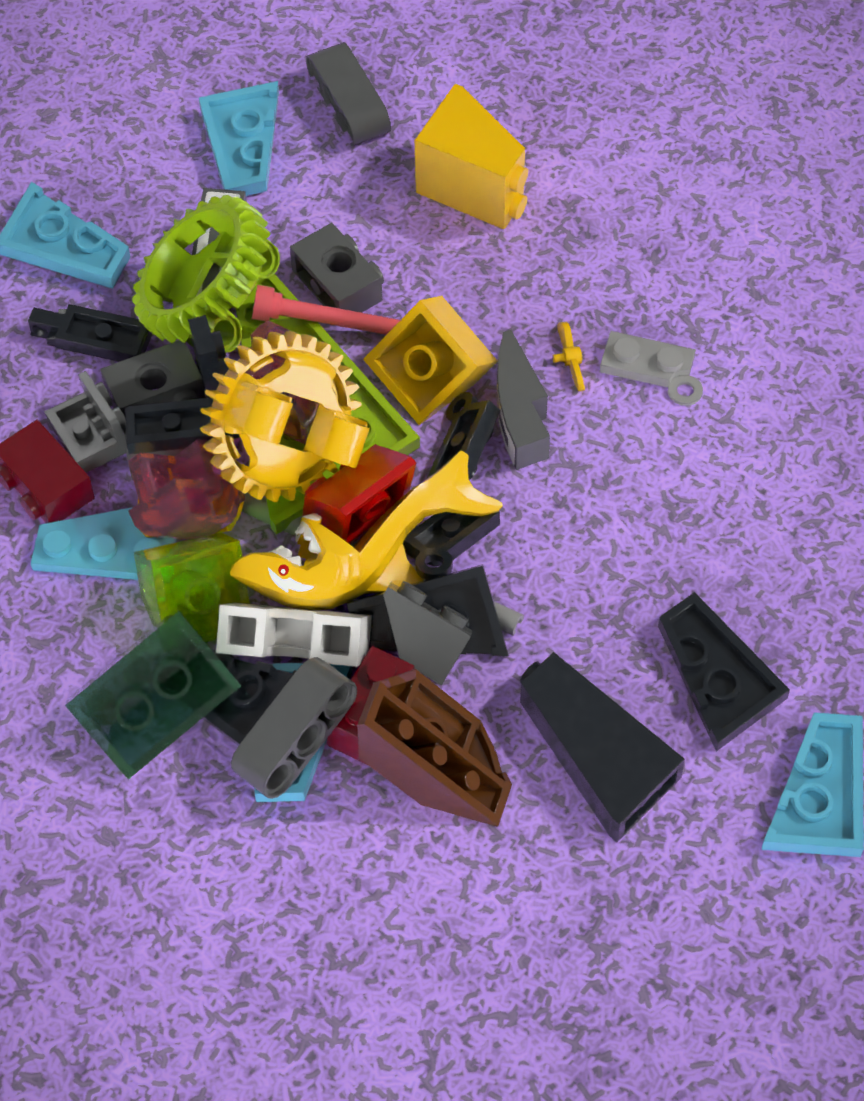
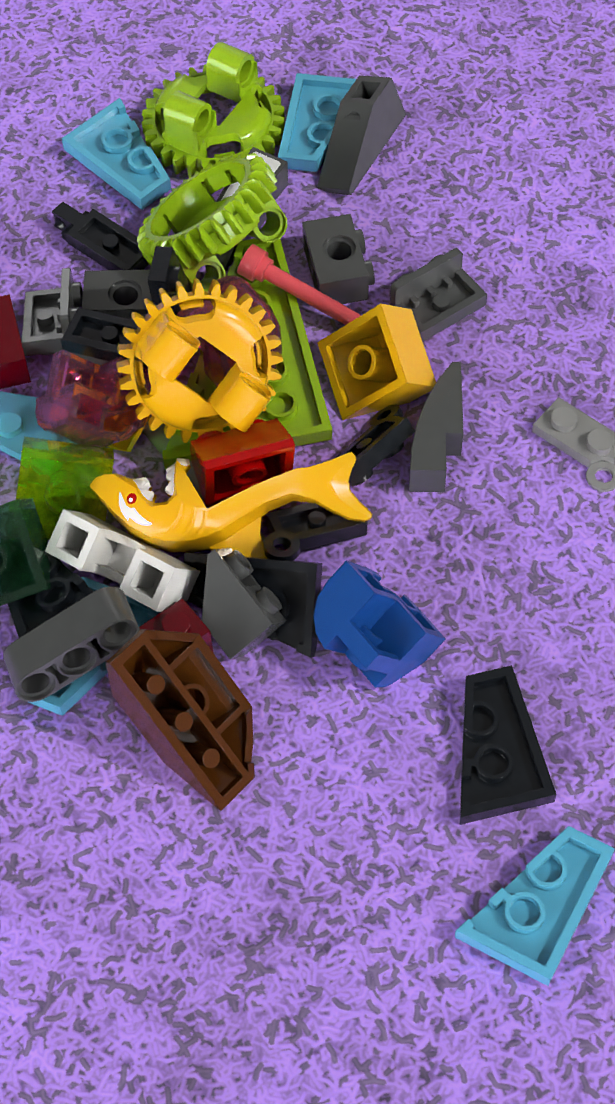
camera: 25 degrees right, 0 degrees up
(128, 182) = (183, 126): none -> lime piece
(295, 139) = (360, 132): none -> dark grey slope
(349, 92) = (429, 111): dark grey beam -> none
(451, 270) = (438, 293): none -> dark grey bracket
(471, 161) = (500, 200): yellow slope -> none
(557, 604) = (373, 625): none -> blue brick
(570, 355) = (511, 406): yellow piece -> none
(601, 746) = (351, 779): black slope -> none

